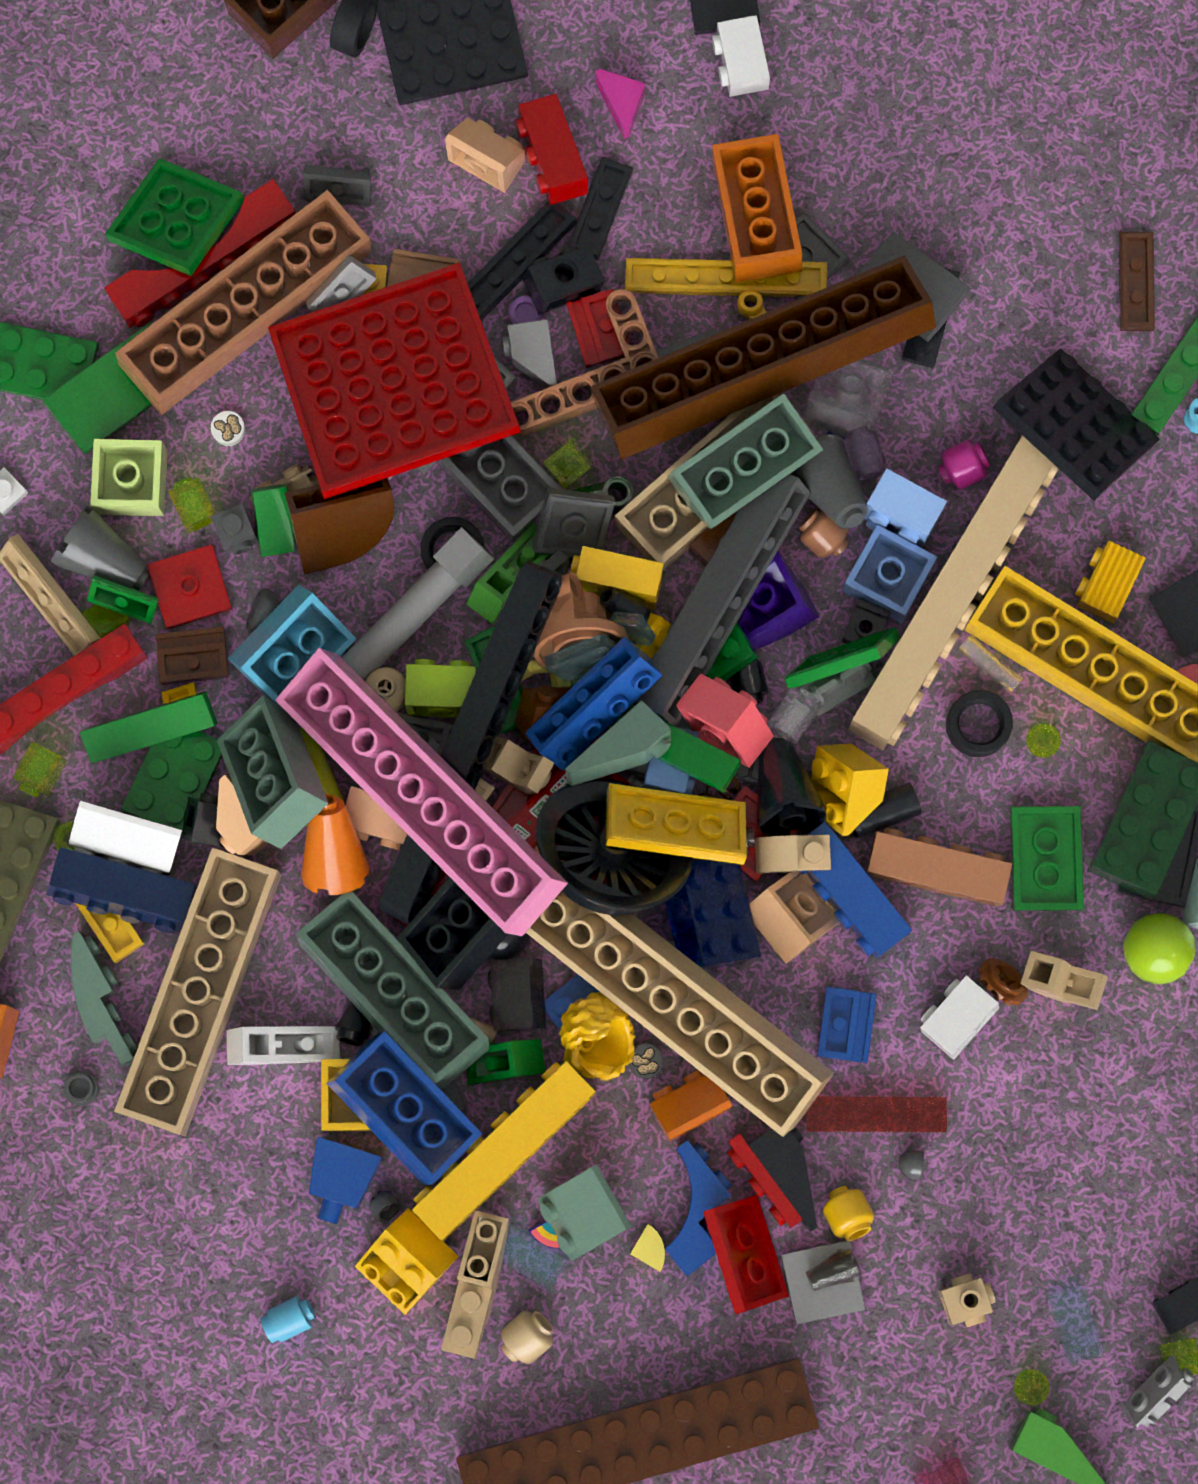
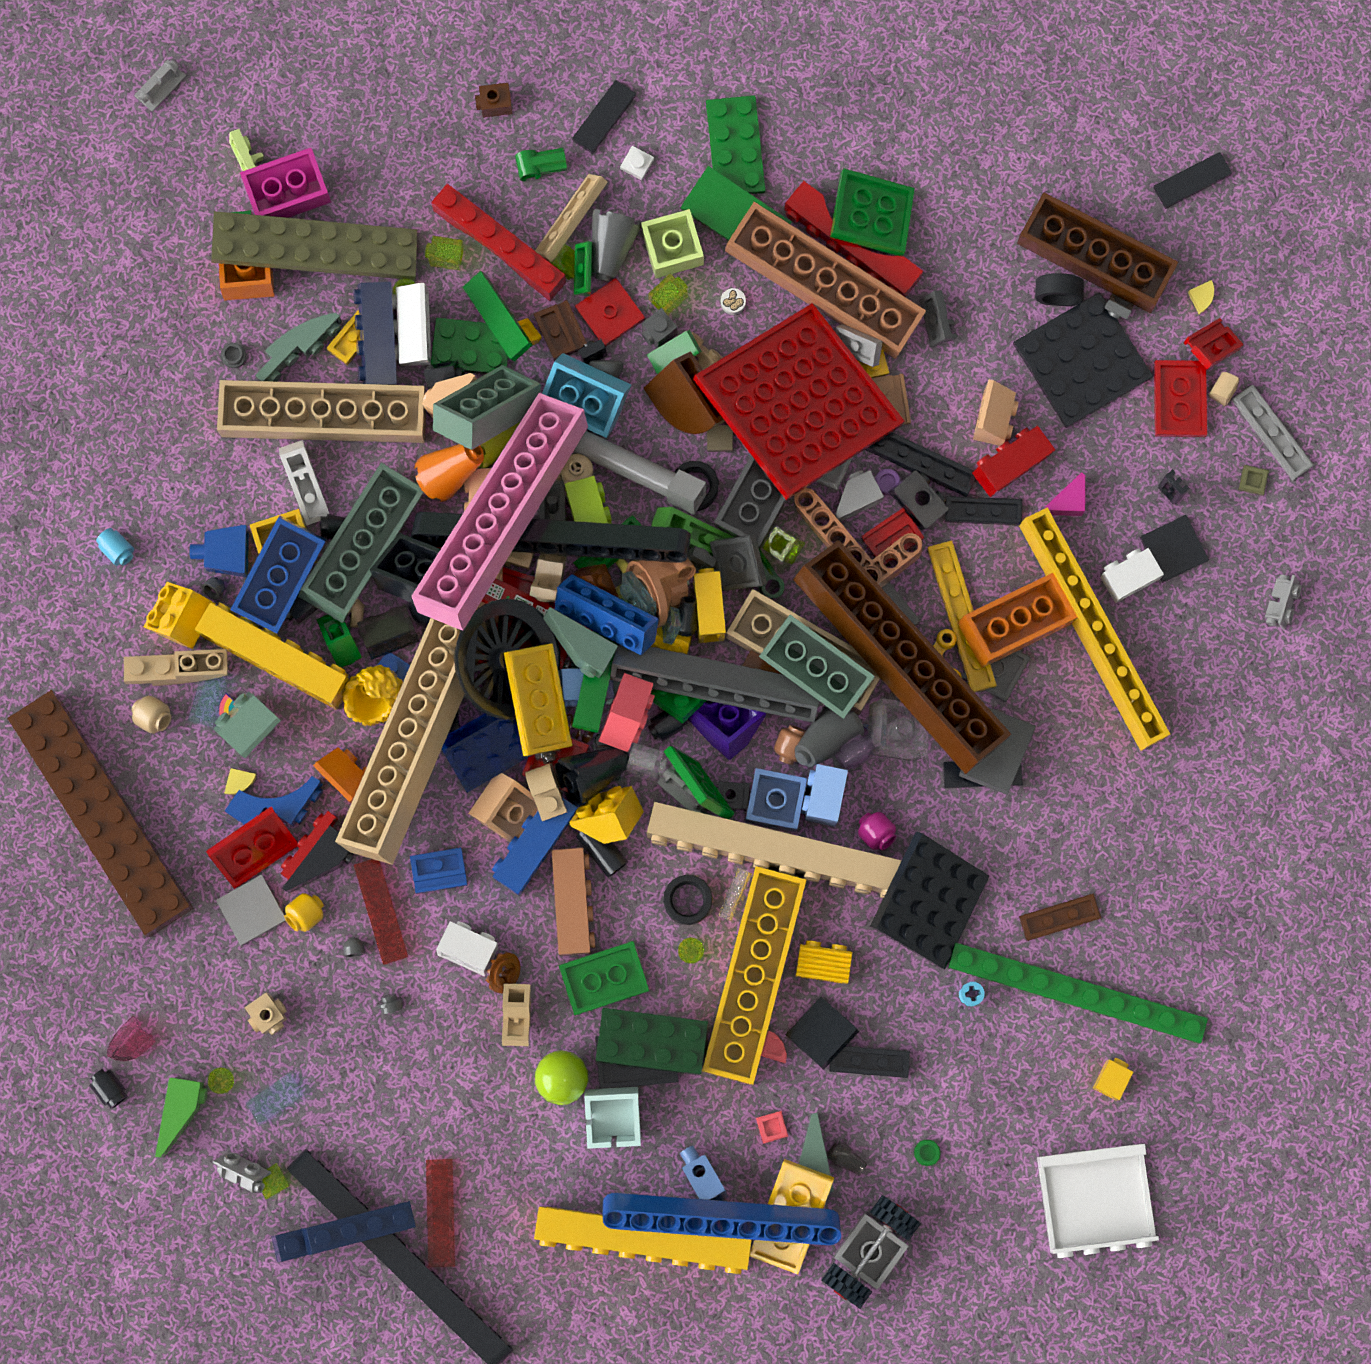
camera: 70 degrees right, 0 degrees up
(235, 622) = (593, 351): none -> black plate
(405, 500) = (720, 439): none -> dark tan tile
(646, 1061) = (368, 737): tile -> none
(799, 120) = (1095, 631): none -> yellow brick
(835, 1270) = (260, 914): clear smoke cone -> none
(999, 1138) = (390, 1003): none -> dark grey plate

